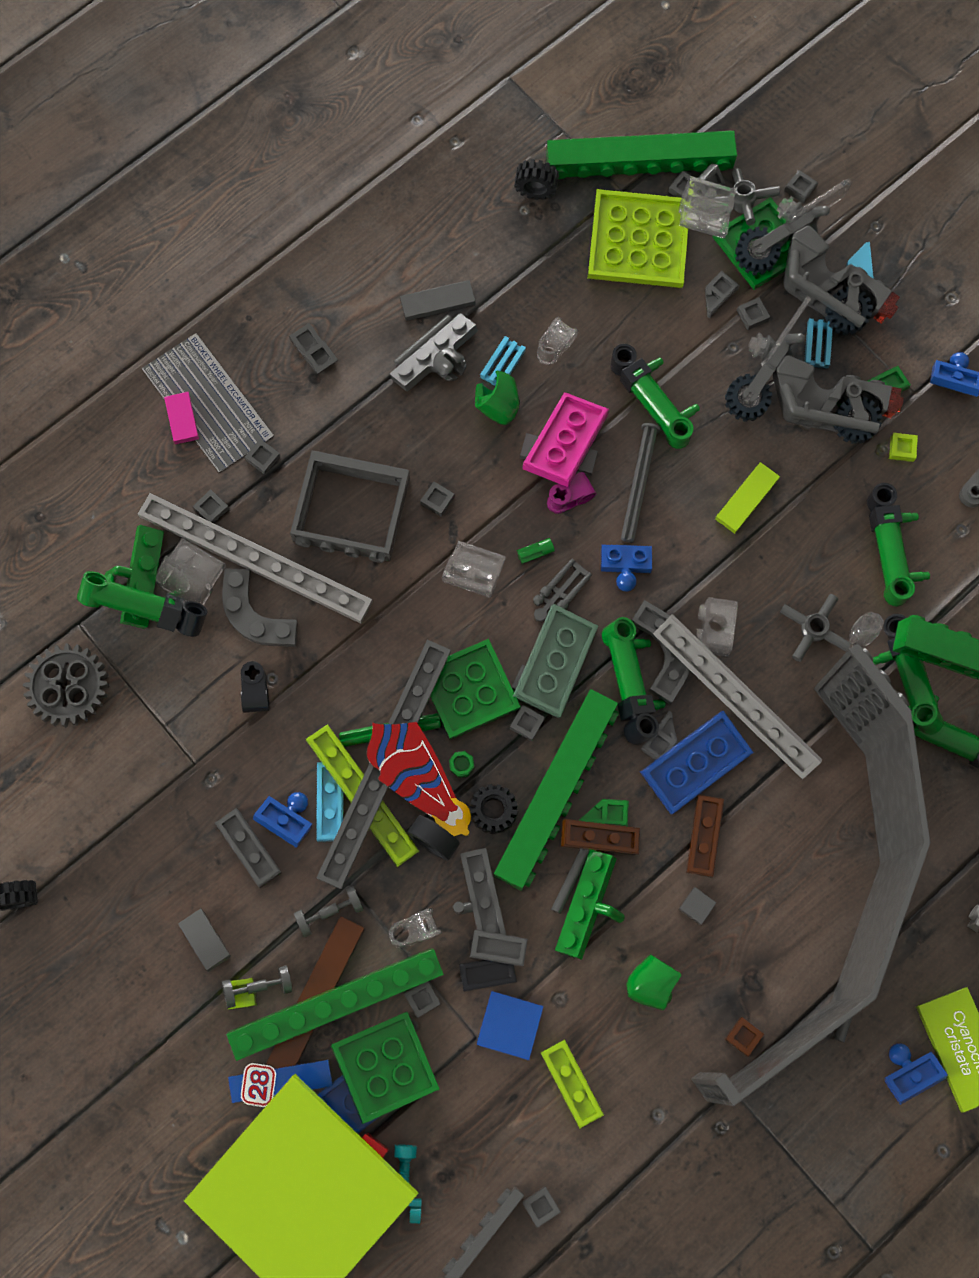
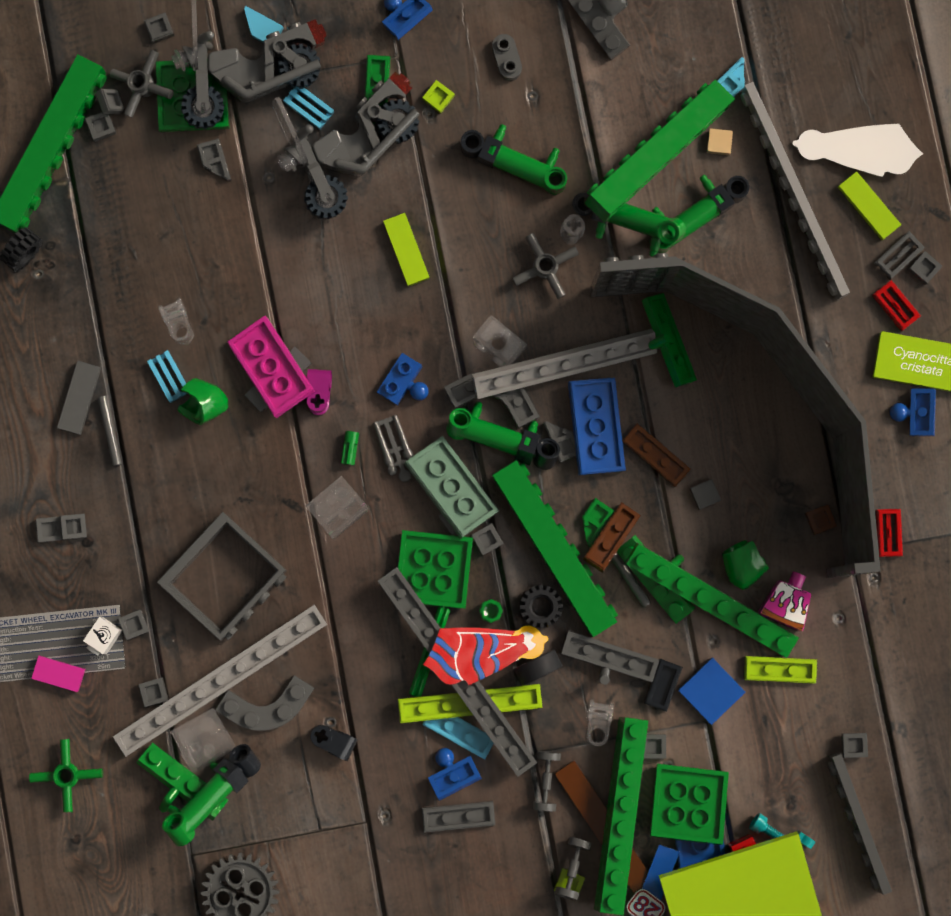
camera: 65 degrees left, 10 degrees up
(88, 465) = (56, 775): none -> green bar
(204, 940) = (512, 889): dark grey slope -> none
(236, 434) = (102, 636): none -> white brick
(437, 355) = (130, 427): dark grey plate -> none
(437, 499) = (257, 501): dark grey tile -> none
(498, 948) = (651, 666): dark grey tile -> none
(599, 971) = (711, 600): none -> green plate
(637, 239) = (125, 194): lime plate -> none
(637, 379) = (254, 274): green piece -> none
(639, 481) = (341, 328): dark grey axle -> none
(642, 1050) = (787, 602): none -> torso
(706, 207) = (136, 124): clear brick -> none
(753, 313) = (250, 142): dark grey tile -> none
(756, 1127) = (898, 532): none -> red tile
(821, 783) = (668, 340): none -> green plate

